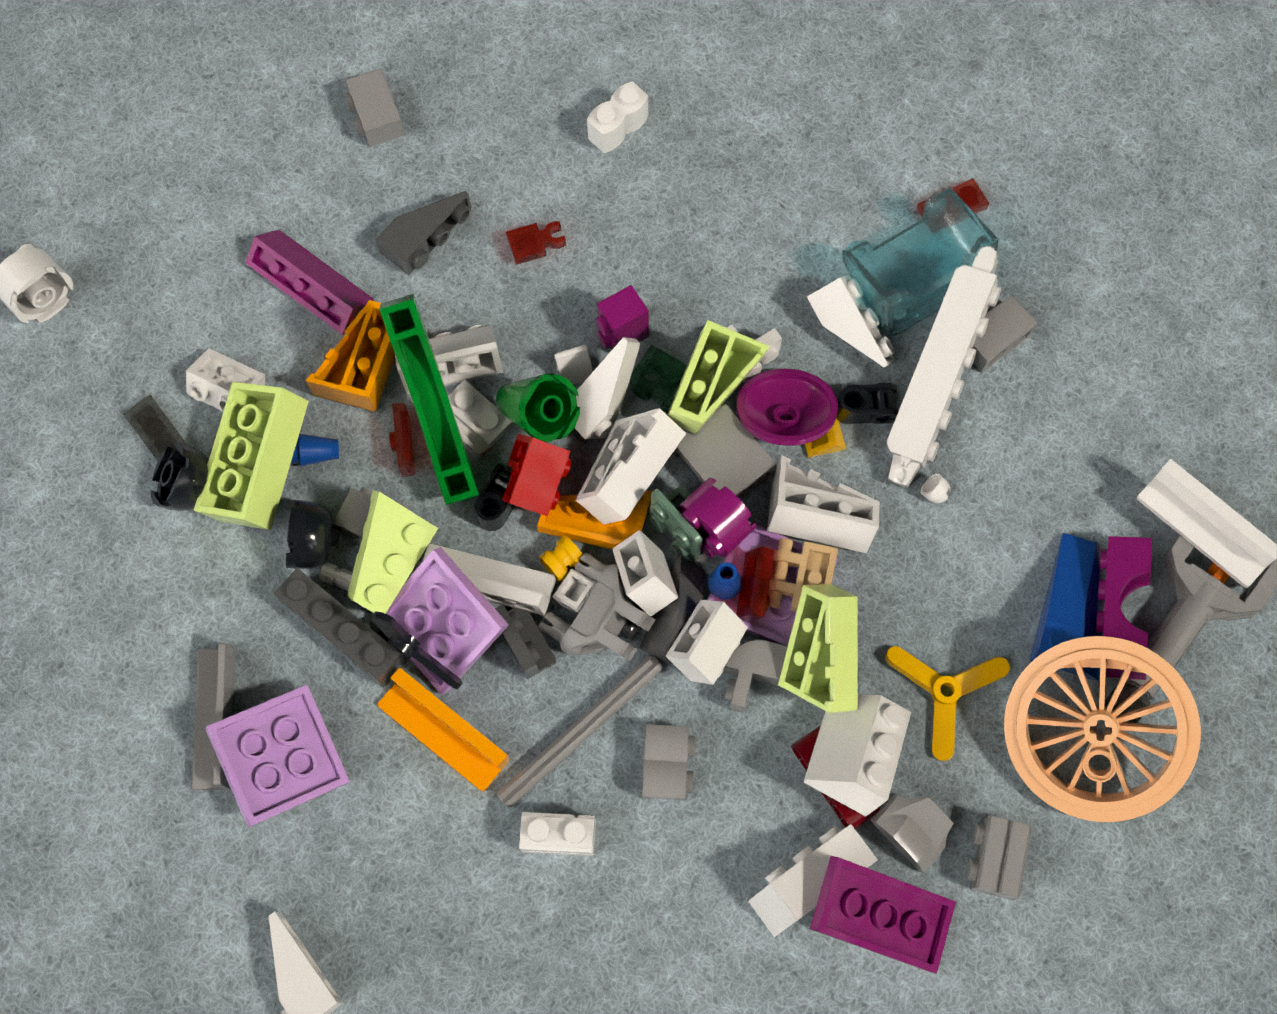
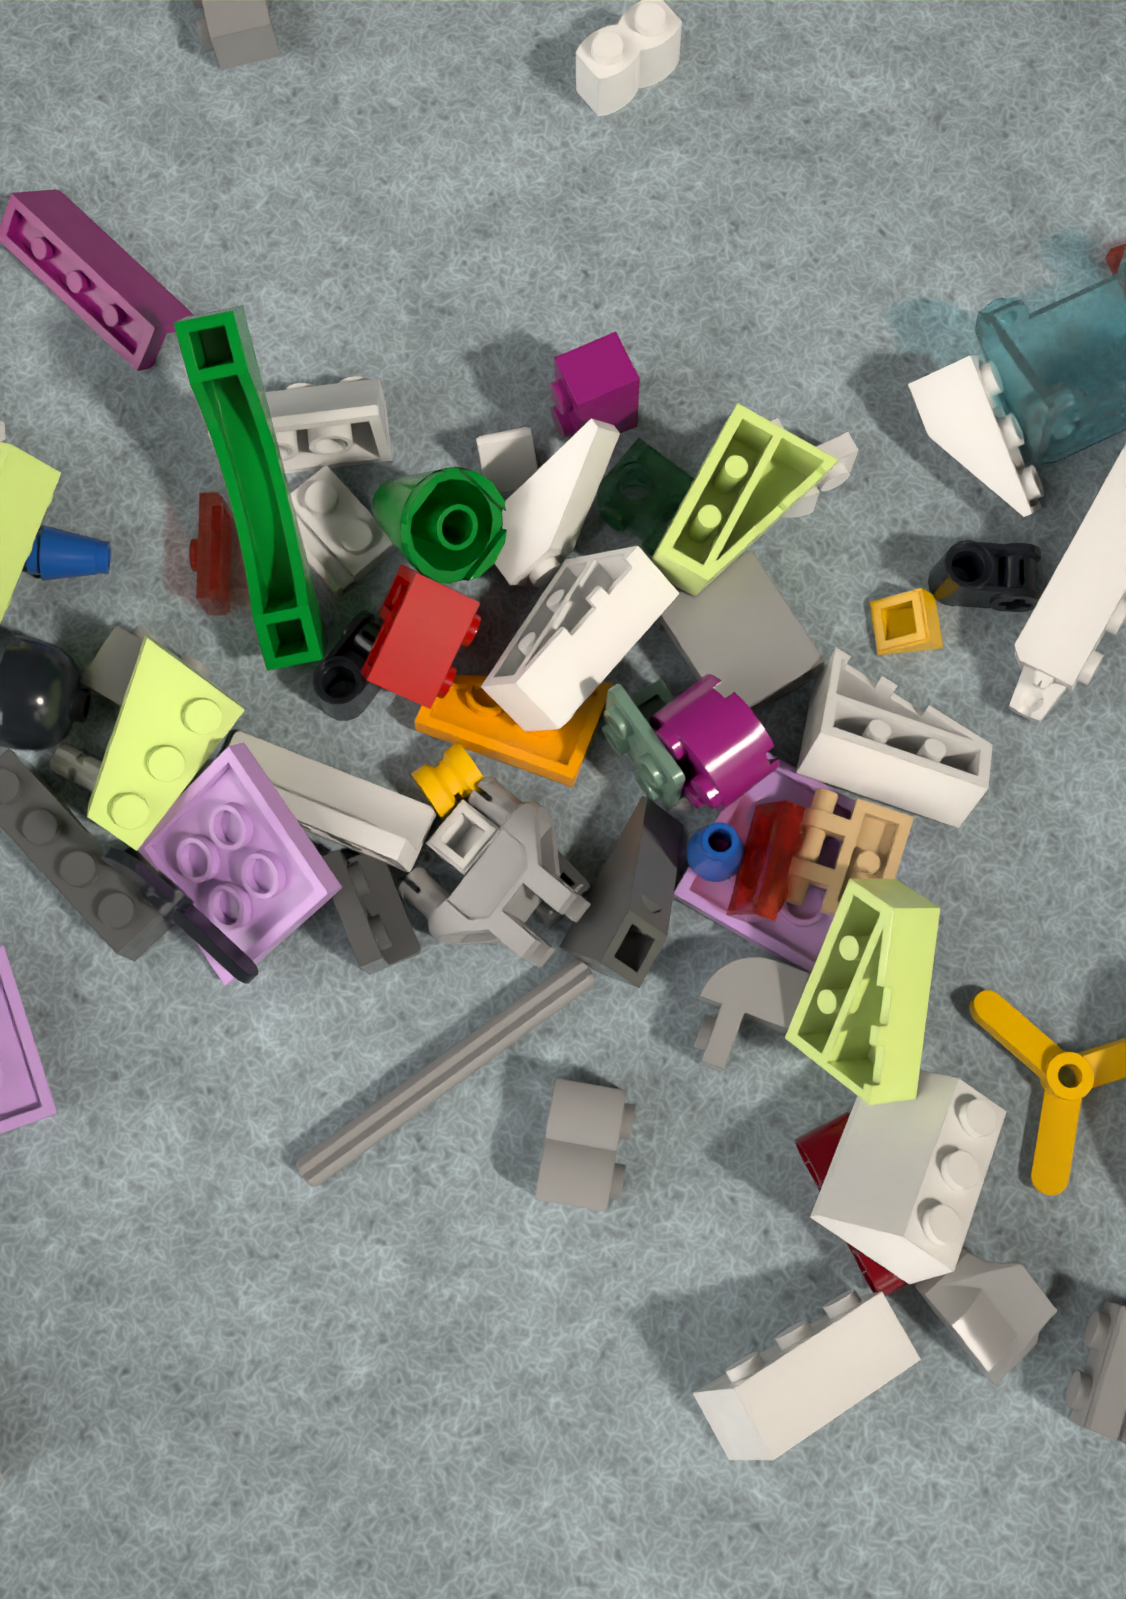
camera: 10 degrees right, 5 degrees up
(358, 364) = (147, 427): light orange wedge -> none
(418, 232) = (281, 213): dark grey slope -> none
(443, 731) = (221, 1046): light orange panel -> none
(529, 243) = (458, 249): clear red plate -> none
(557, 834) = (386, 1246): white brick -> none
(645, 573) = (582, 823): white brick -> none
(707, 641) = (673, 952): white brick -> none
(787, 407) = (854, 567): magenta dish -> none
(882, 914) = (918, 1459): magenta plate -> none
(936, 489) = (1087, 731): white hinge -> none

